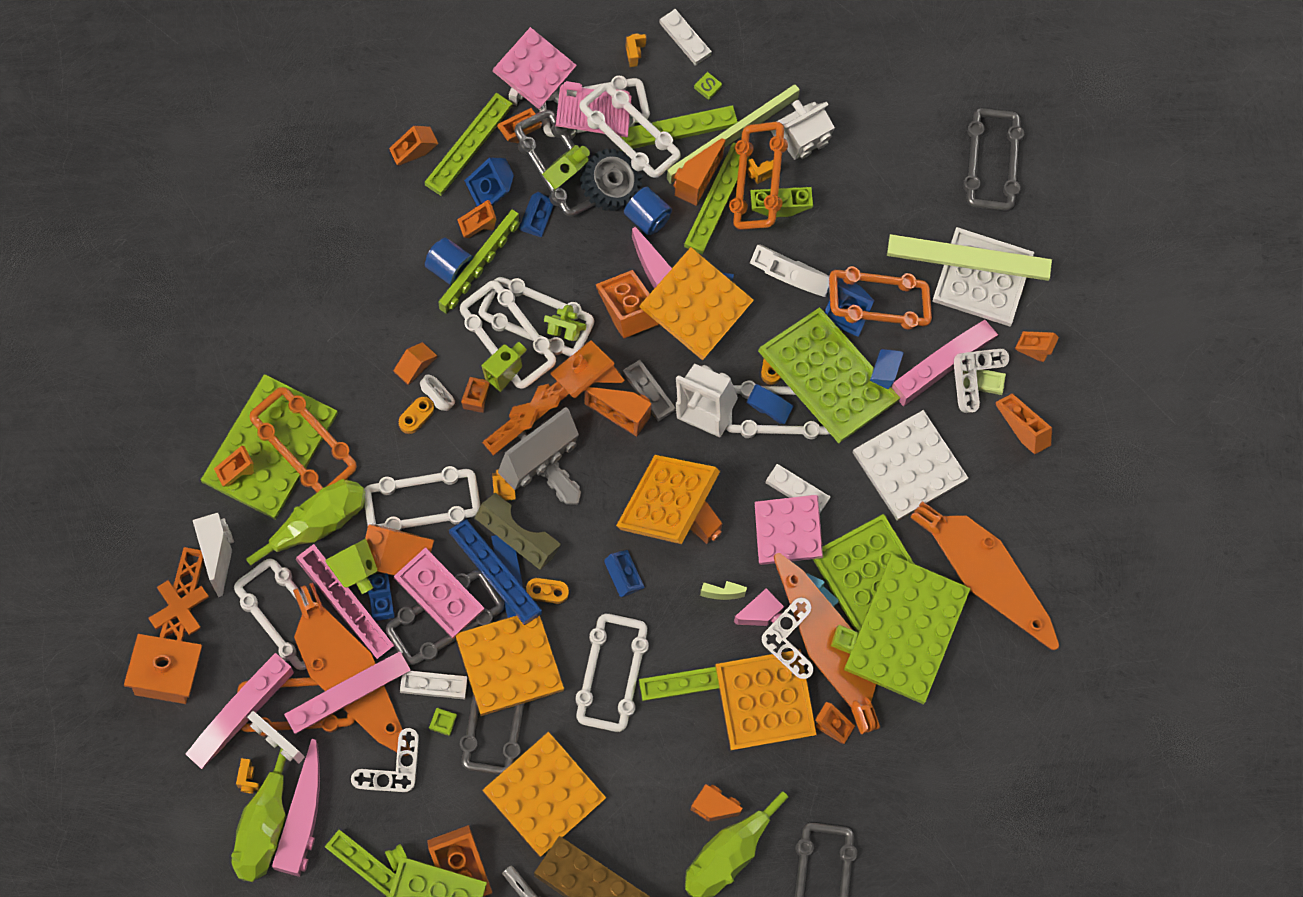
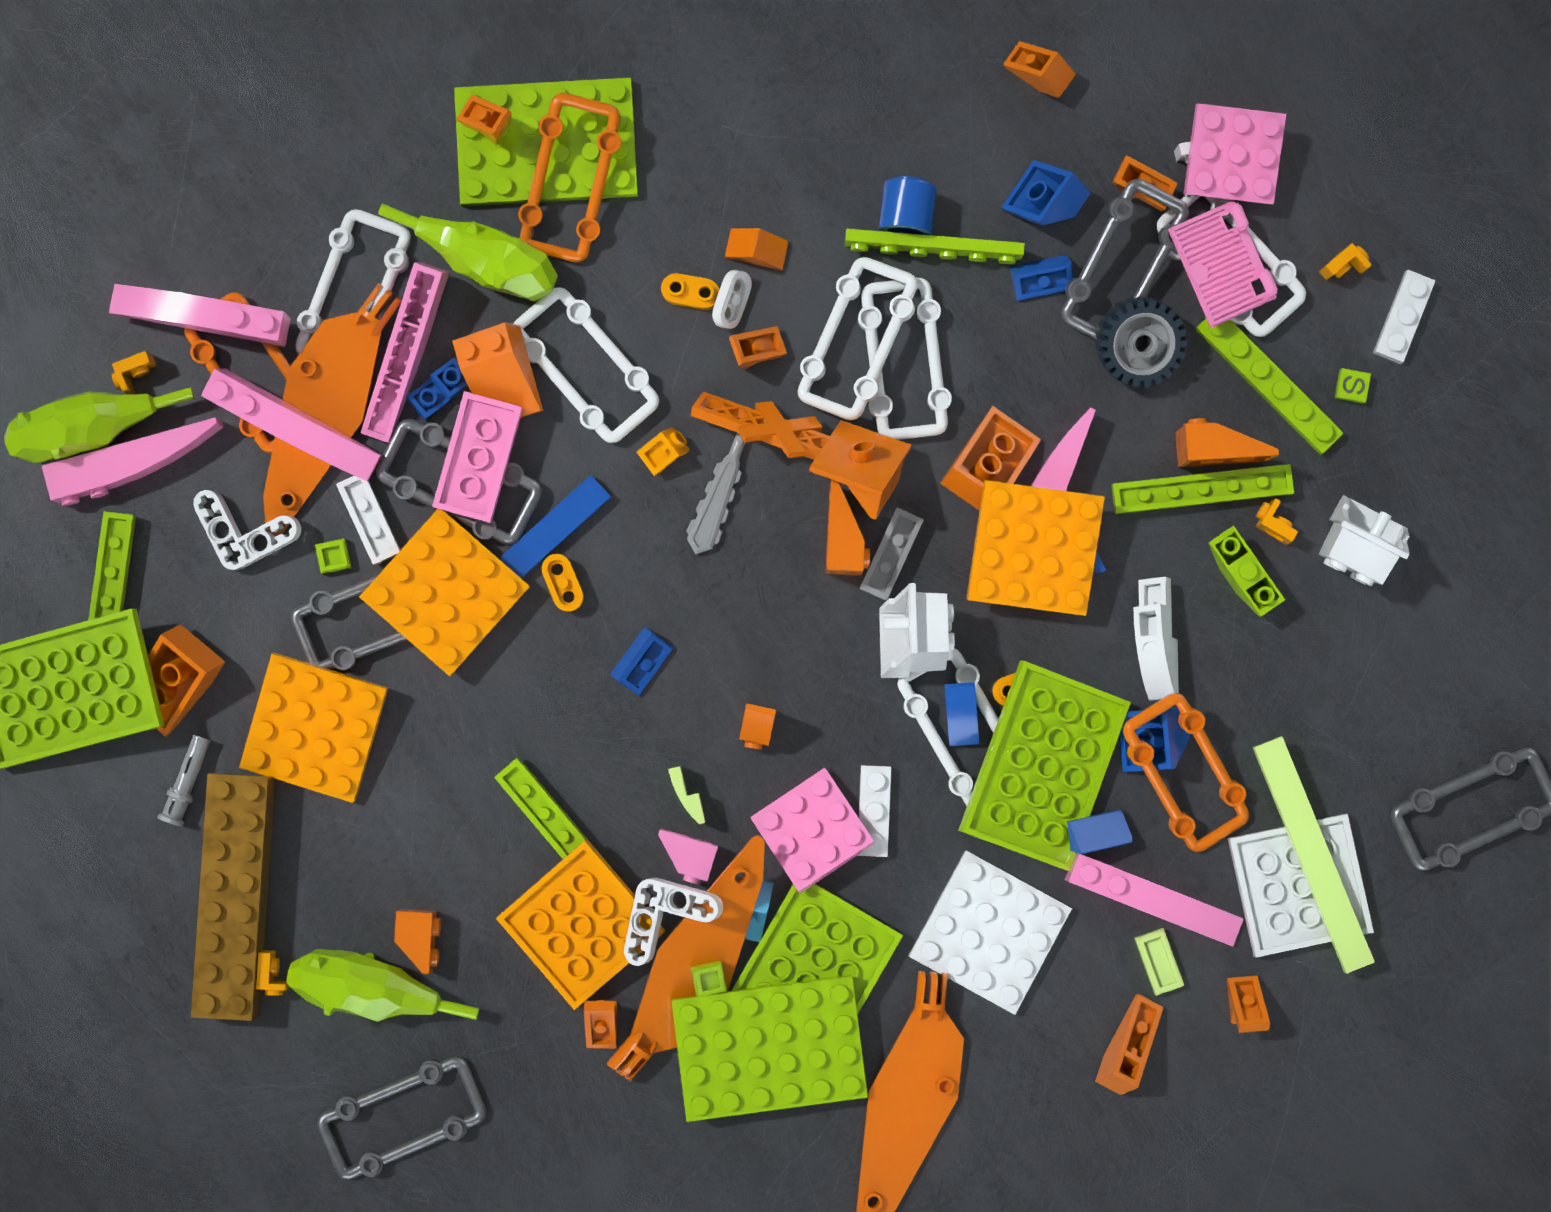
camera: 65 degrees right, 15 degrees up
(176, 678) = (222, 203): orange piece -> none
(215, 546) = (365, 161): white slope -> none
(274, 738) = (188, 375): white plate -> none
(354, 566) = (444, 336): lime torso -> none
(394, 856) = (139, 599): lime wheel -> none
(468, 144) = (1084, 135): lime plate -> none
(478, 219) = (985, 209): orange slope -> none
(495, 572) = (546, 507): blue tile -> none
(503, 365) = (798, 352): lime torso -> none
(535, 547) = (604, 537): olive arch -> none
(539, 449) = (725, 469): light grey slope -> none
(571, 162) = (1134, 279): lime torso -> none
(572, 327) = (918, 400): lime hips -> none
(621, 100) = (1256, 288): white bar -> none
(626, 706) = (460, 705): white bar -> none
(648, 211) = (1126, 413): blue piece -> none
(668, 499) = (756, 663): light orange plate -> none
(735, 131) = (1313, 460): yellowish green tile -> none
(772, 201) = (1287, 485): orange bar -> none
(971, 366) = (1162, 940): white beam -> none

